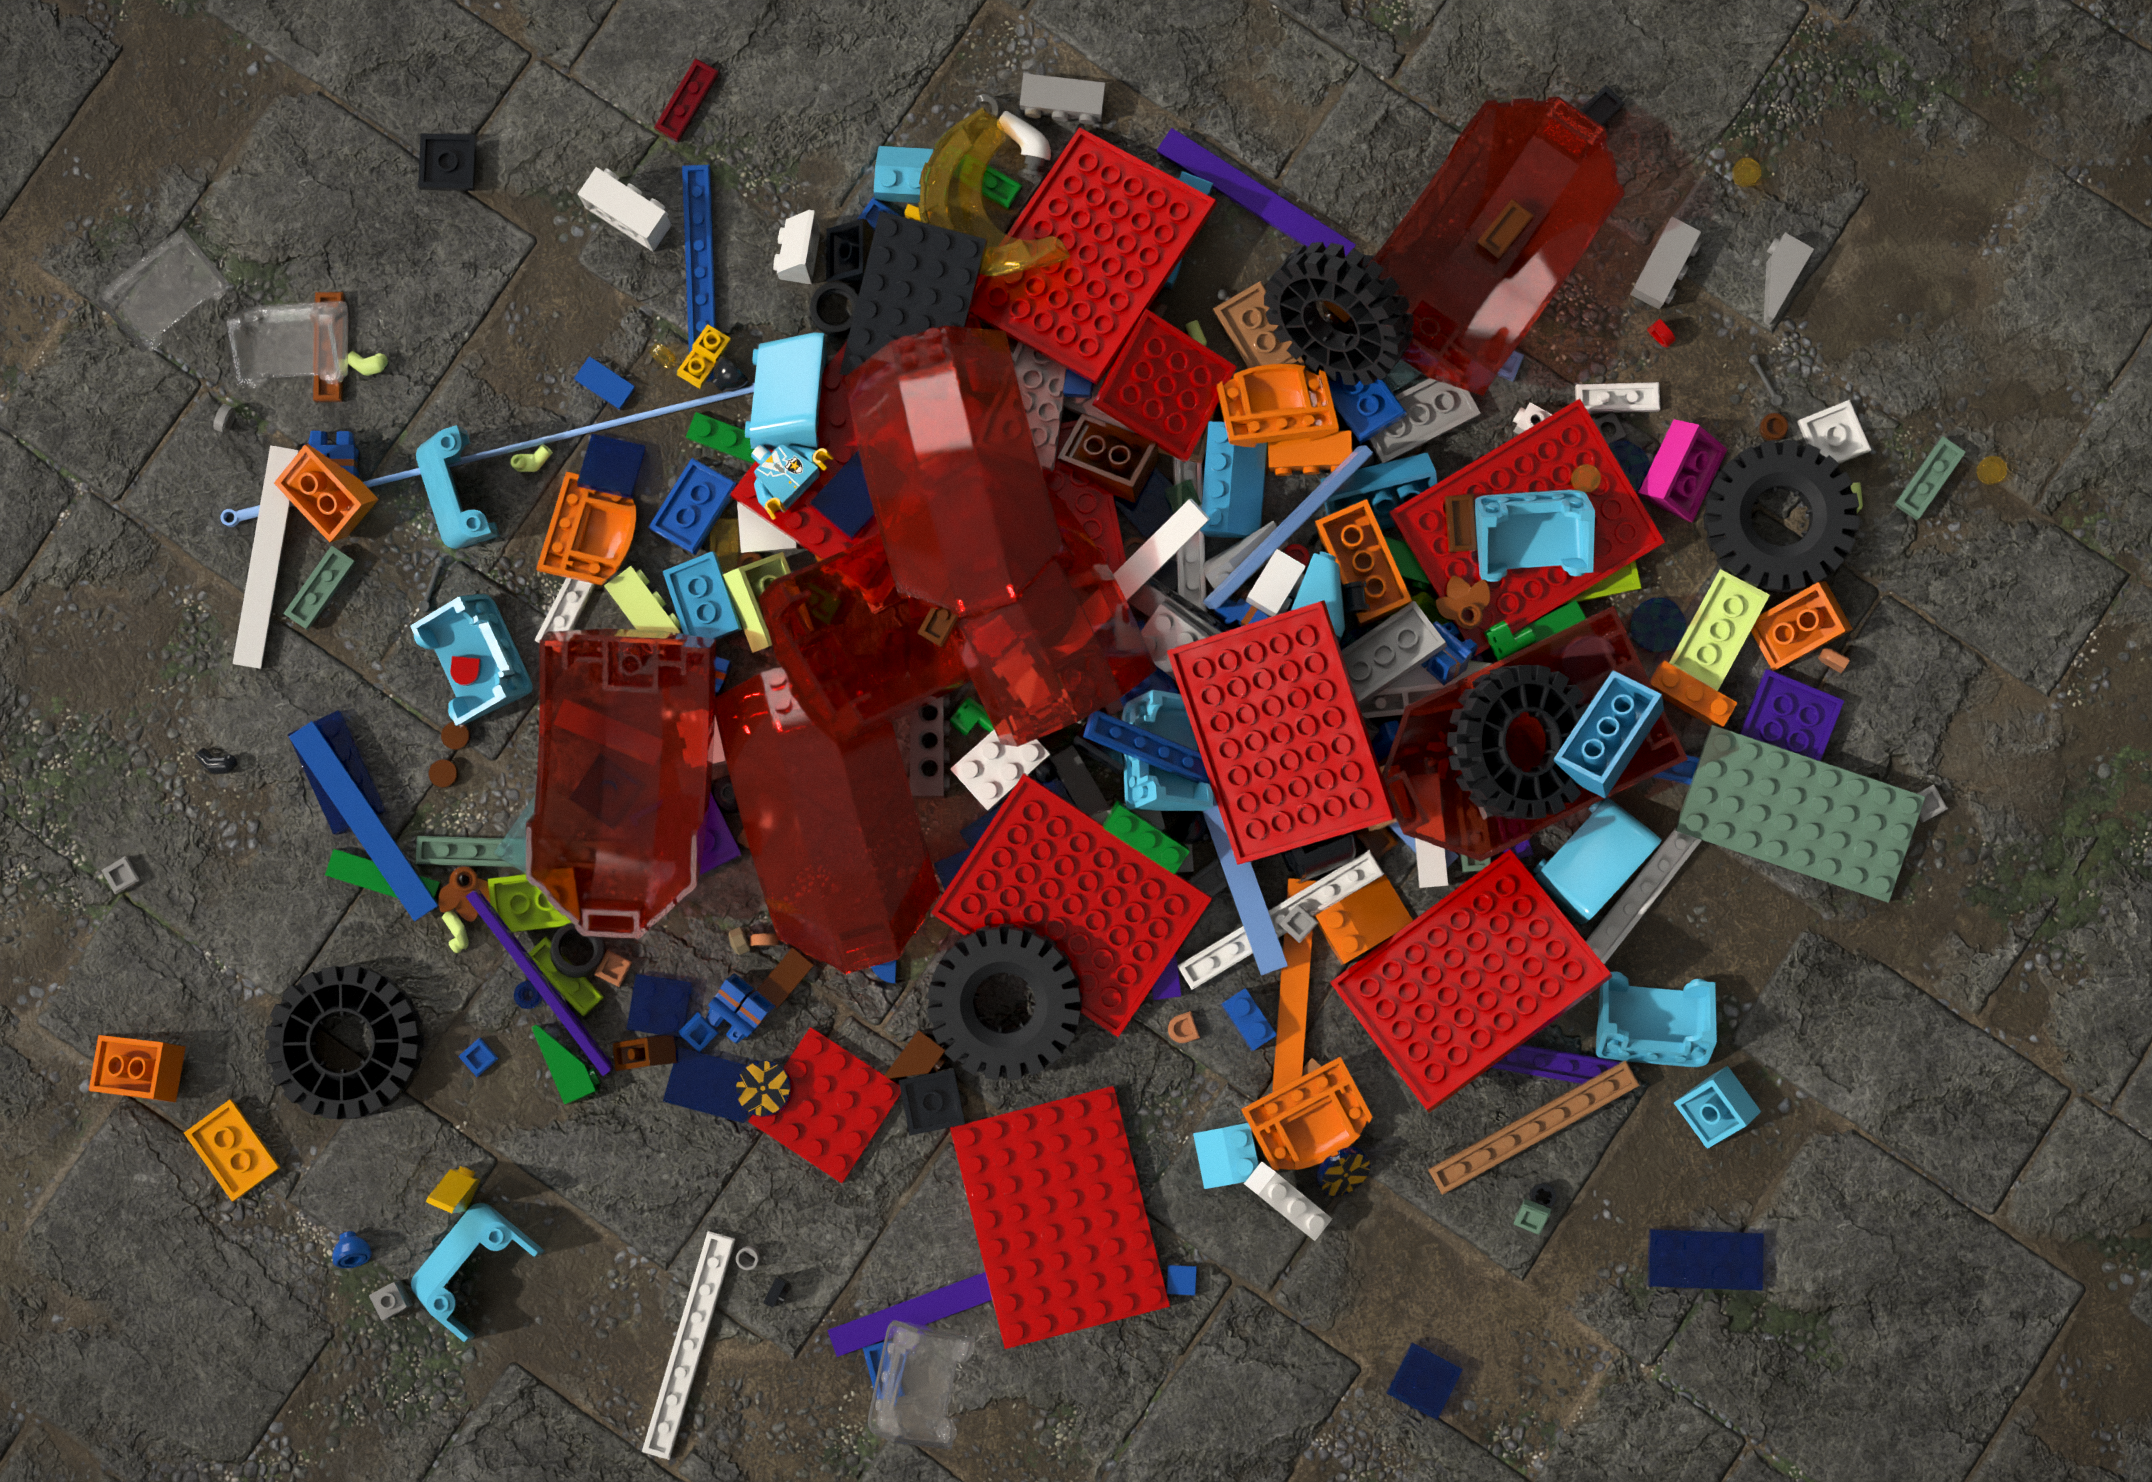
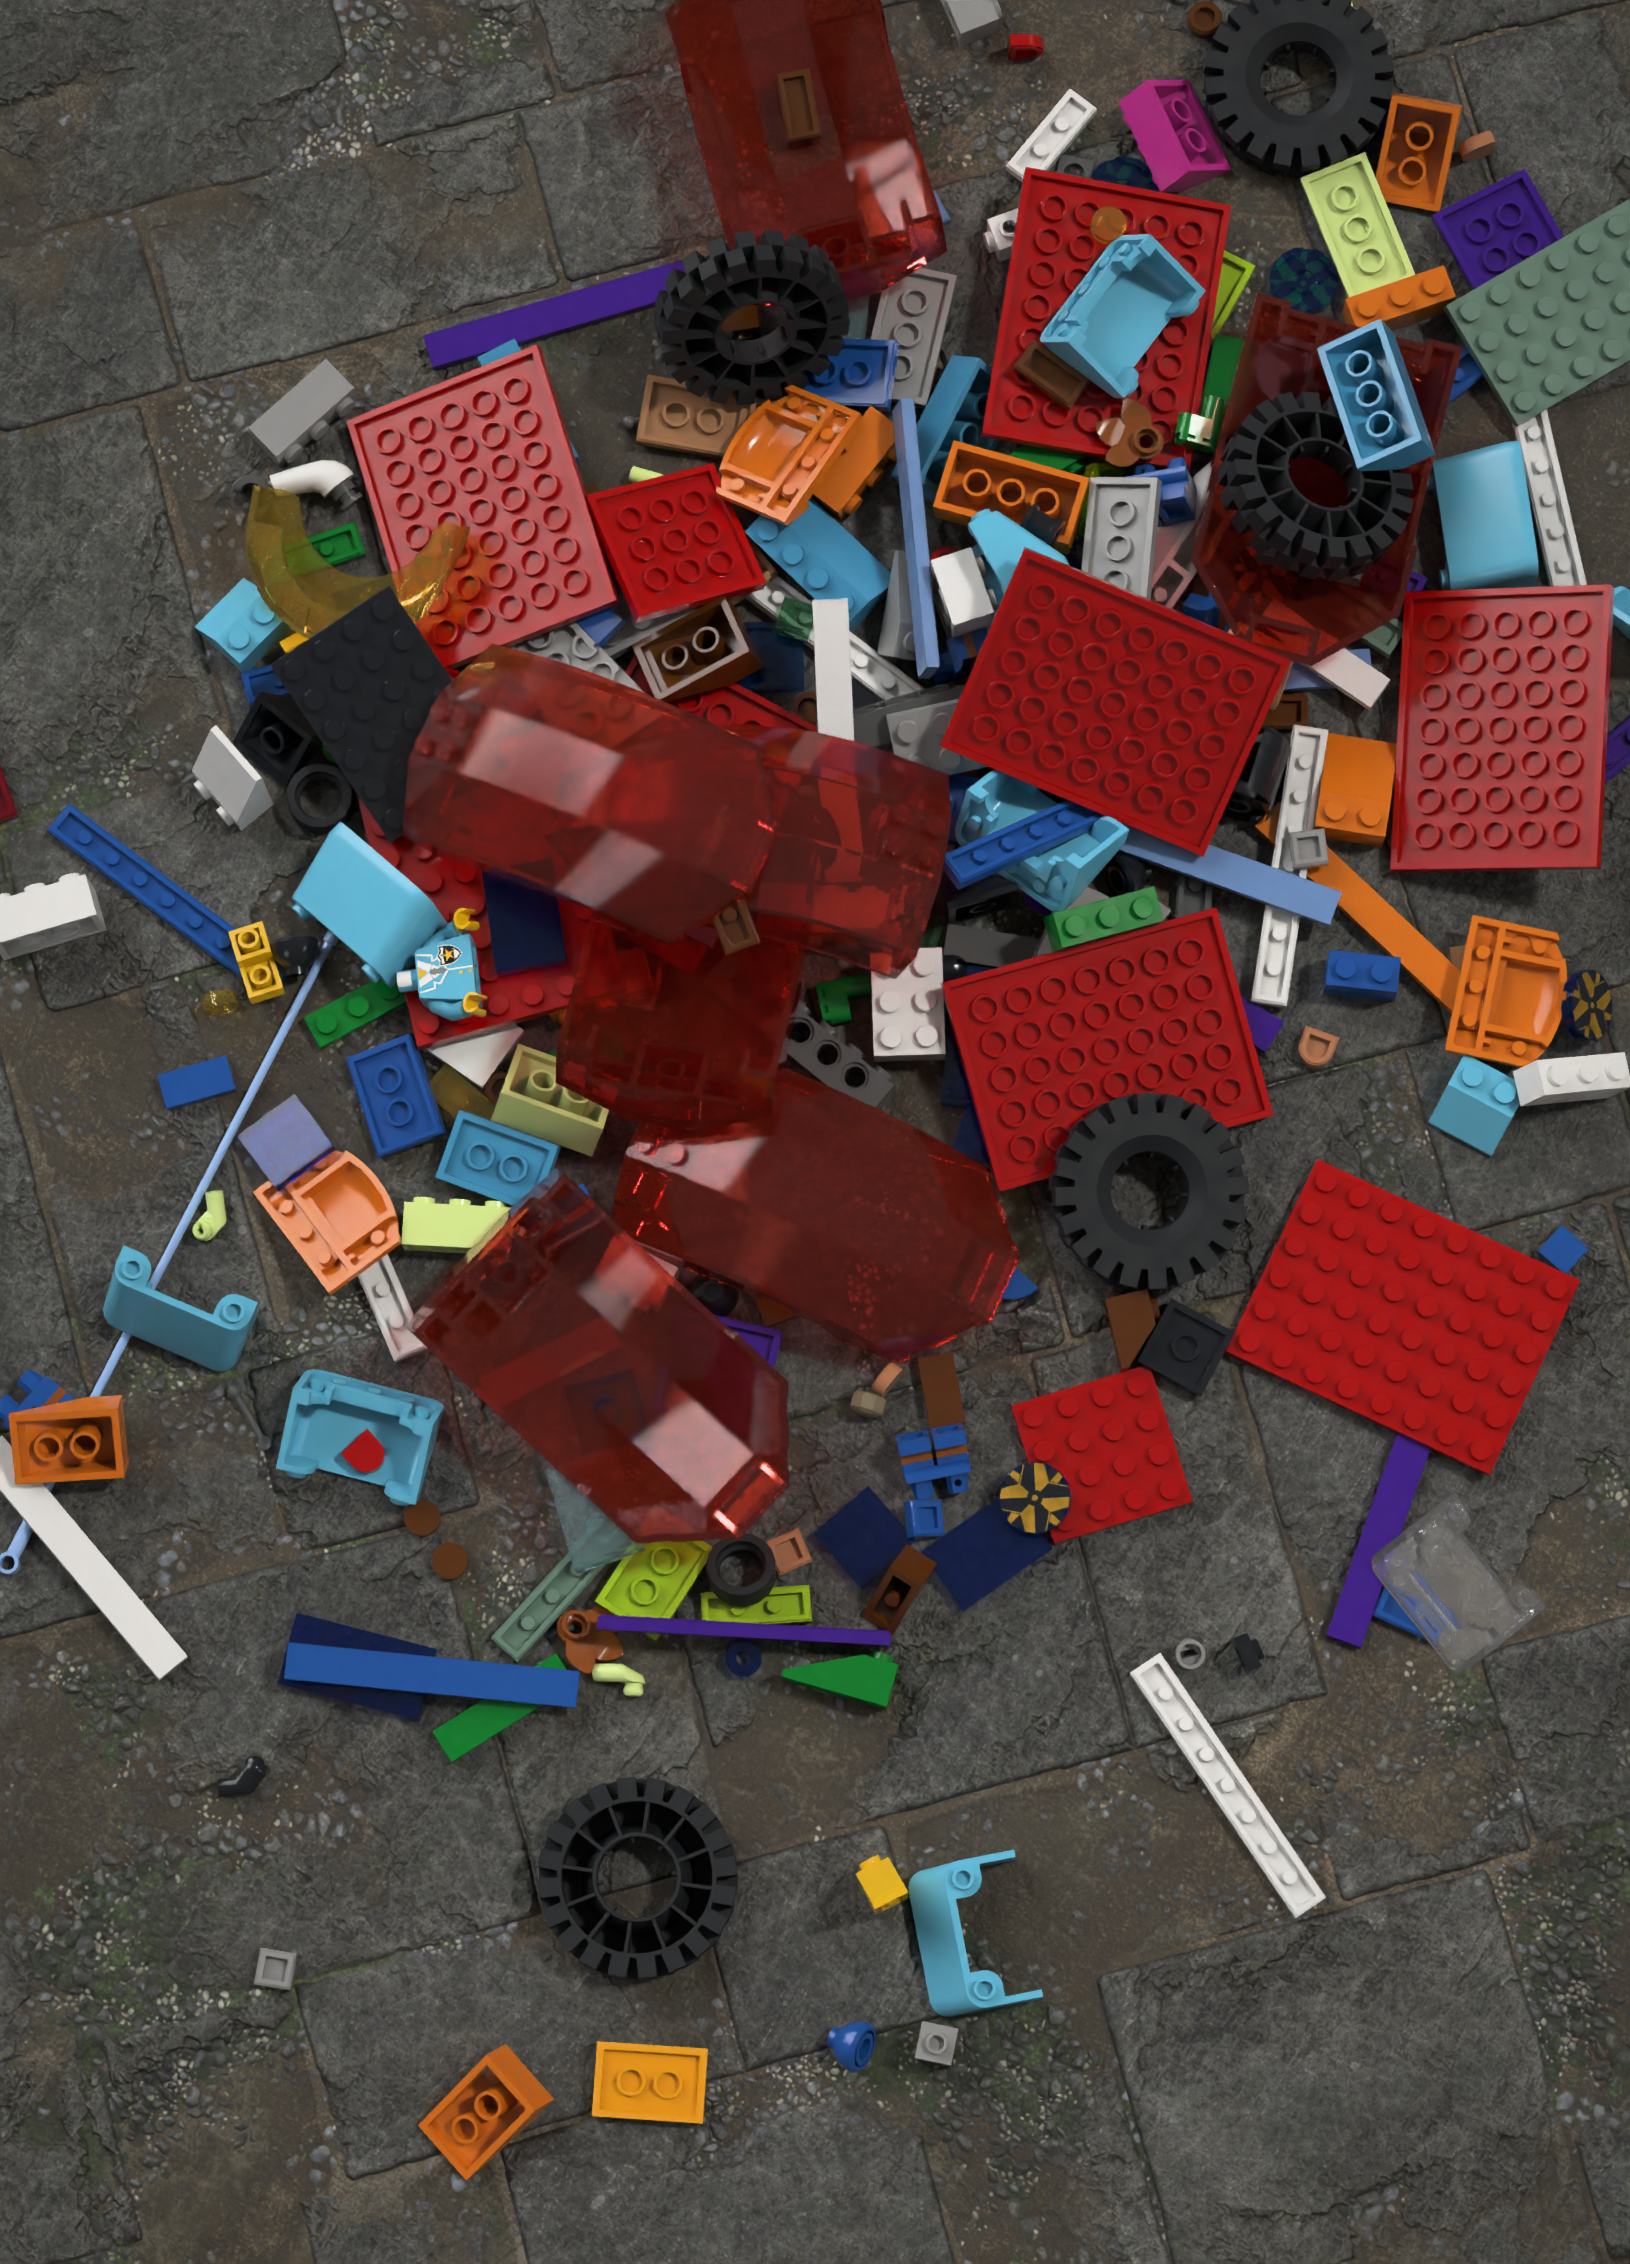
camera: 45 degrees left, 5 degrees down
(319, 588) = (157, 1530): sand green plate -> none
(478, 1057) = (764, 1759): blue tile -> none

